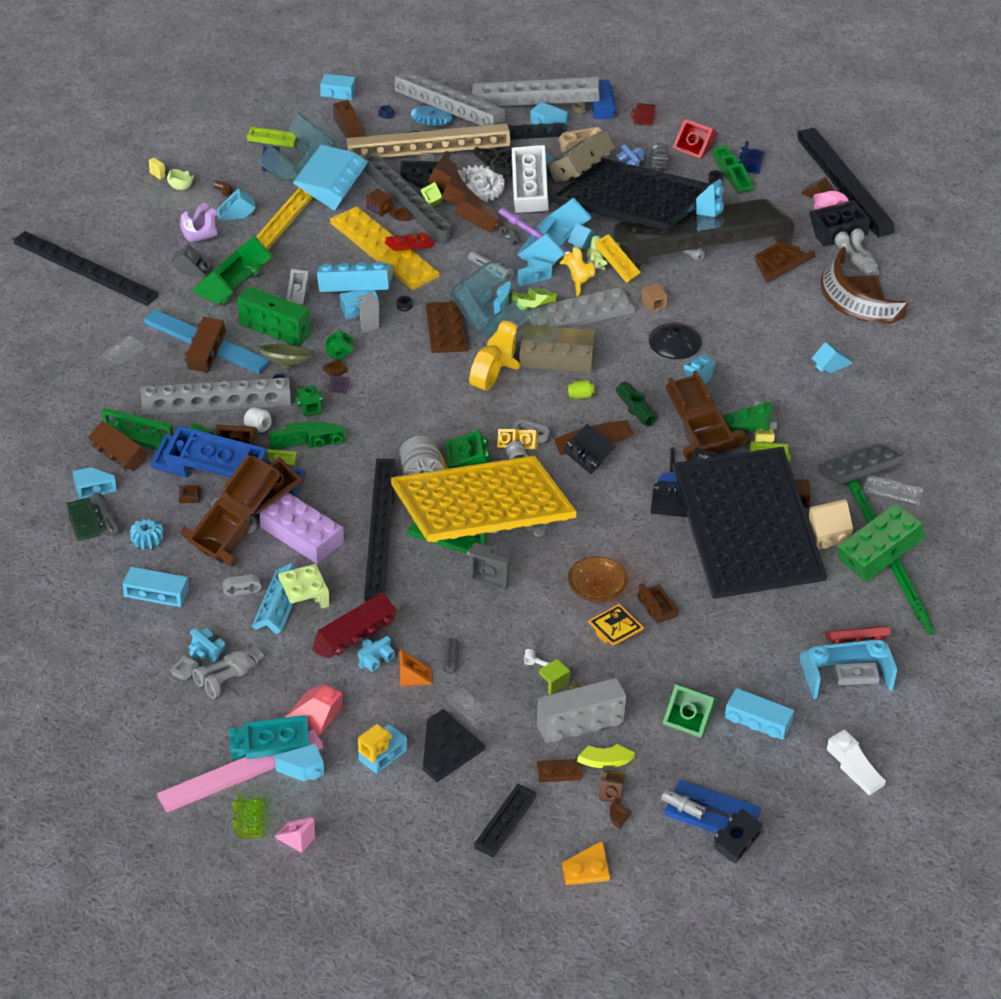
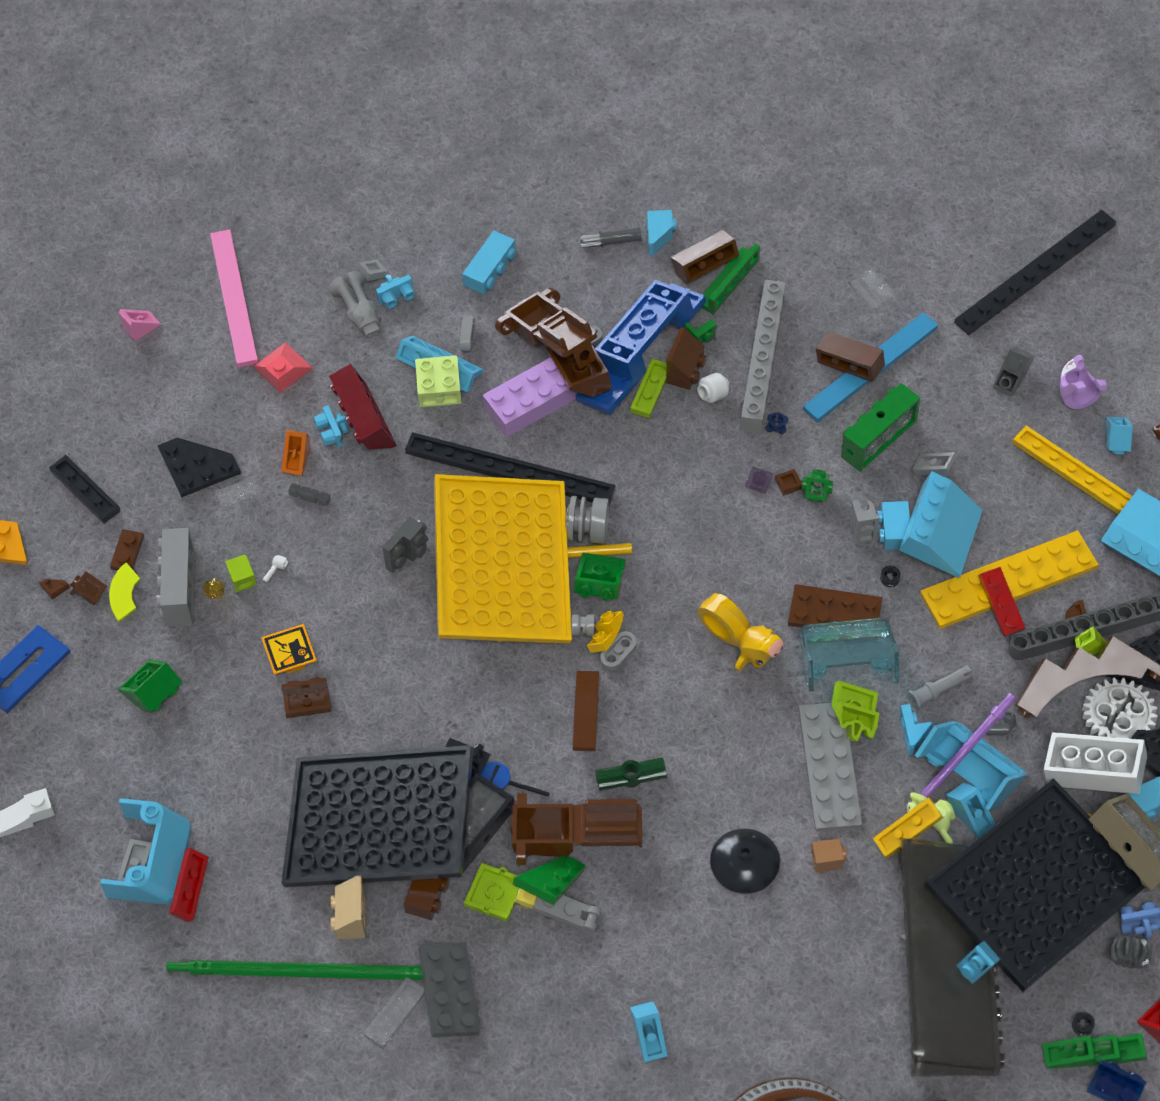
camera: 110 degrees right, 15 degrees up
(84, 519) = (605, 216): clear green brick -> none
(146, 533) = (567, 265): medium azure gear -> none
(189, 494) = (618, 311): reddish brown tile -> none
(233, 271) = (975, 396): green windscreen -> none
(250, 817) = (175, 292): clear neon green bracket -> none
(269, 737) = (255, 323): teal tile -> none
(286, 355) = (822, 425): olive dish -> none
(301, 763) = (215, 341): medium azure slope -> none
(309, 400) = (729, 439): green brick -> none
(314, 433) = (675, 430): green slope -> none
(374, 742) = (198, 387): yellow brick -> none
(379, 202) = (1098, 589): reddish brown brick -> none
(396, 748) = (208, 407): medium azure brick -> none
(503, 297) = (874, 682): medium azure slope -> none
(557, 348) = (757, 714): dark tan slope -> none
(579, 270) = (894, 777): yellow animal -> none
(581, 389) = (675, 721): lime brick -> none
(588, 448) = (561, 695): black hinge -> none
(597, 579) = (351, 634): clear orange dish -> none
(683, 803) = (31, 636): light grey pin -> none
(703, 365) = (659, 853): medium azure slope -> none
(759, 714) = (117, 746): medium azure brick -> none
(780, 259) = (873, 1043): reddish brown wing -> none
(881, 542) = (300, 951): green brick -> none

